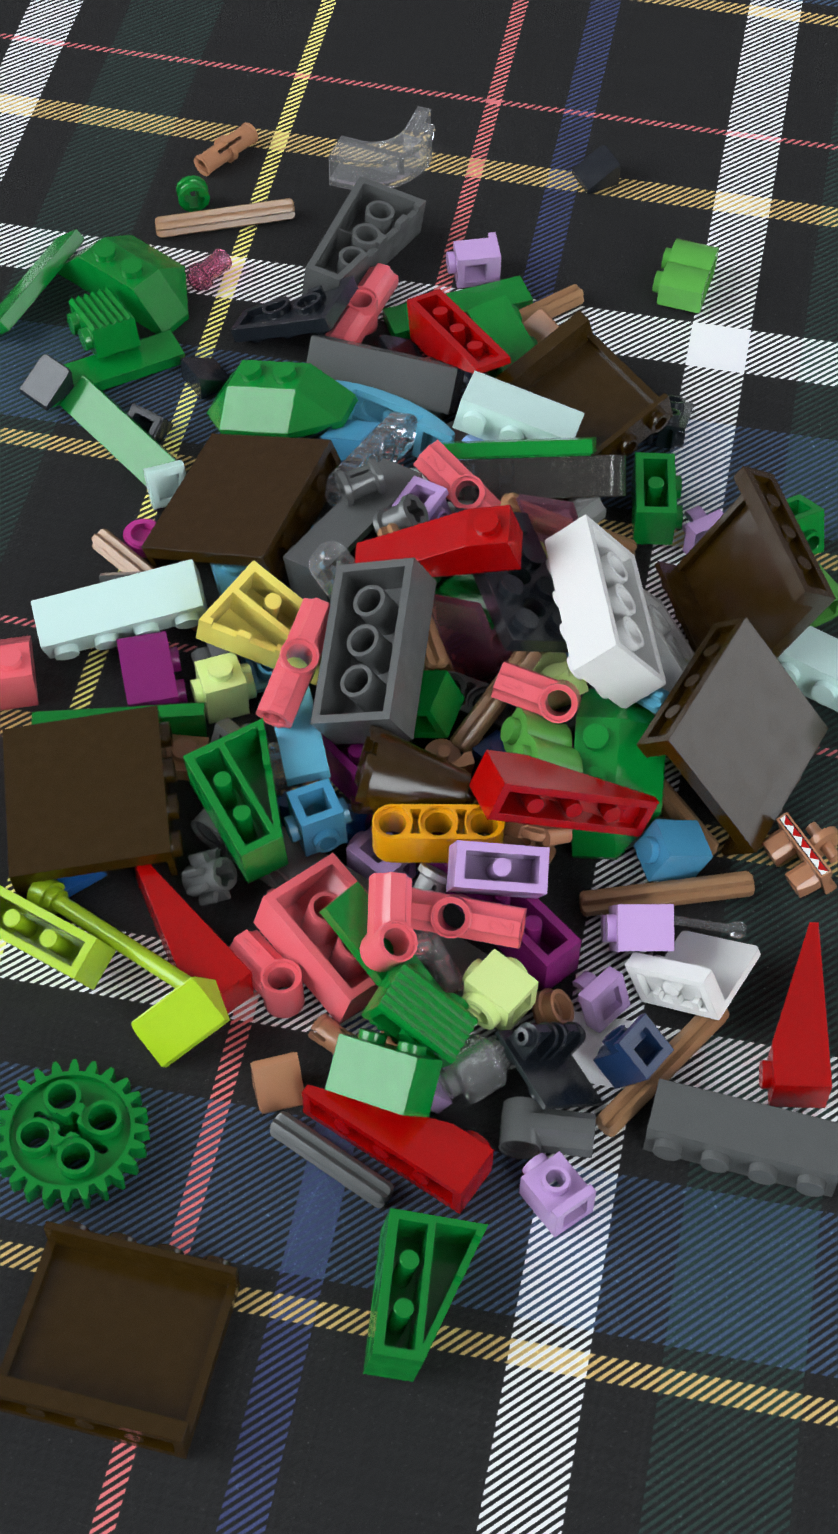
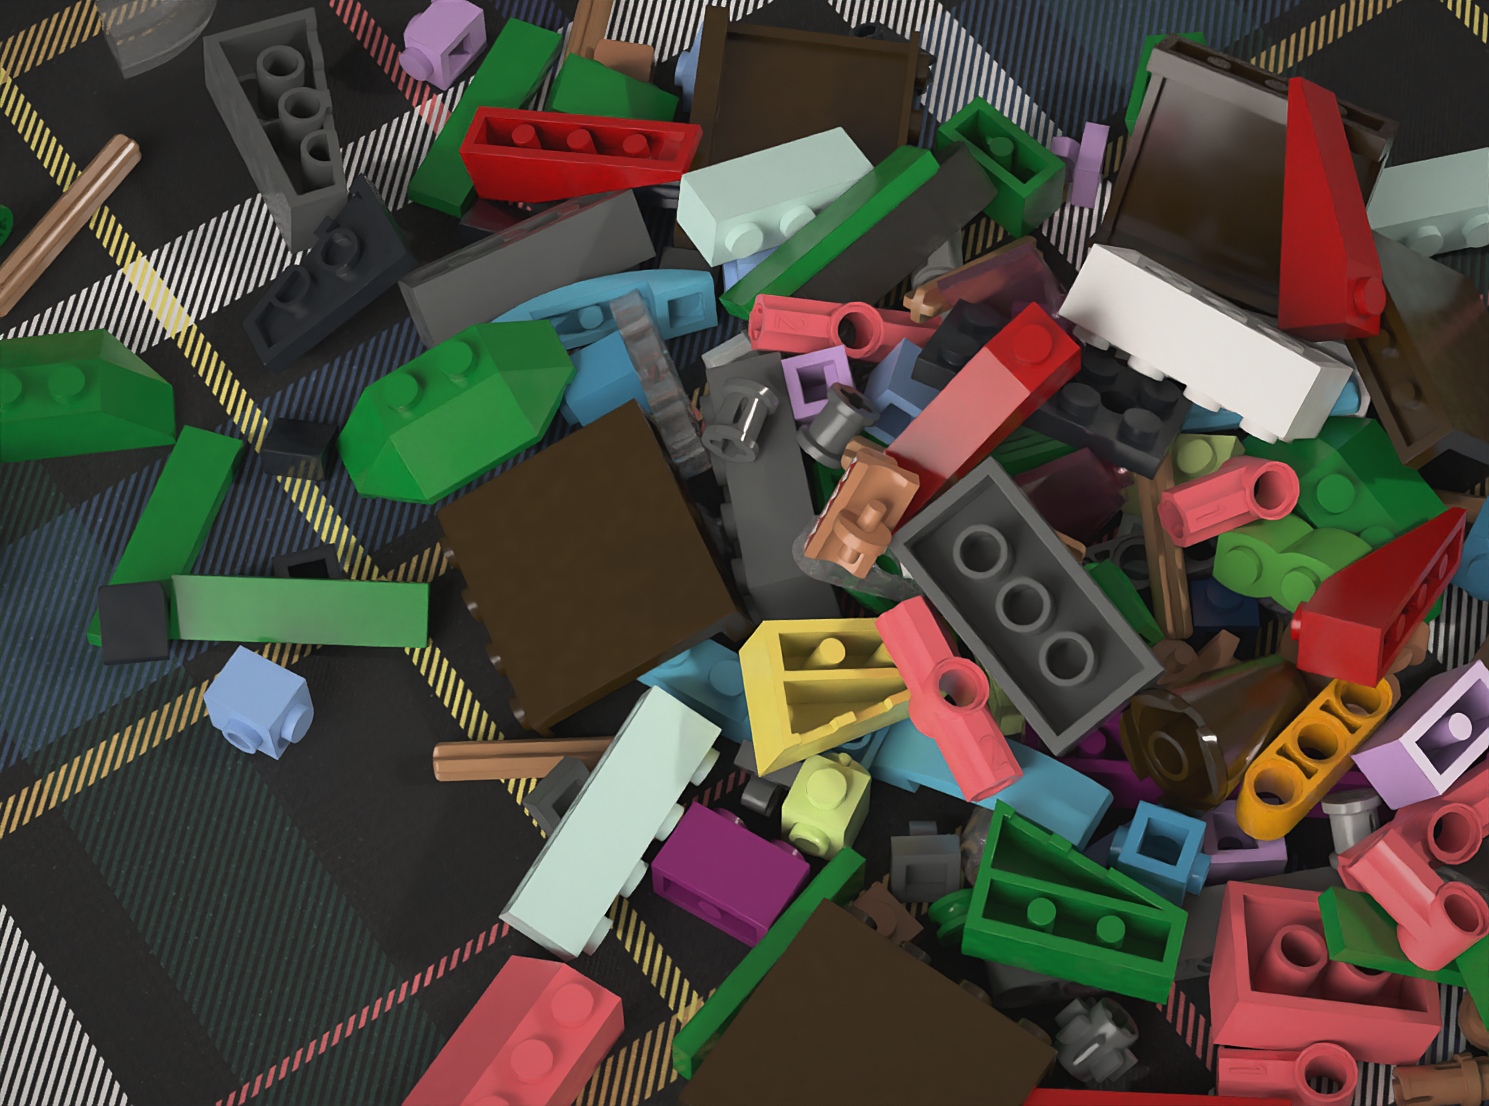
camera: 45 degrees left, 5 degrees up
(56, 454) = (259, 704): none -> light blue brick
(103, 324) = (103, 486): green brick -> none
(136, 534) = (484, 712): dark pink tile -> none
(163, 482) = (441, 623): light aqua tile -> none
(203, 274) = (131, 312): clear pink pin -> none
(343, 542) = (862, 512): none -> nougat hips
(362, 311) = (371, 154): coral piece -> none
(726, 600) = (1327, 247): none -> red slope

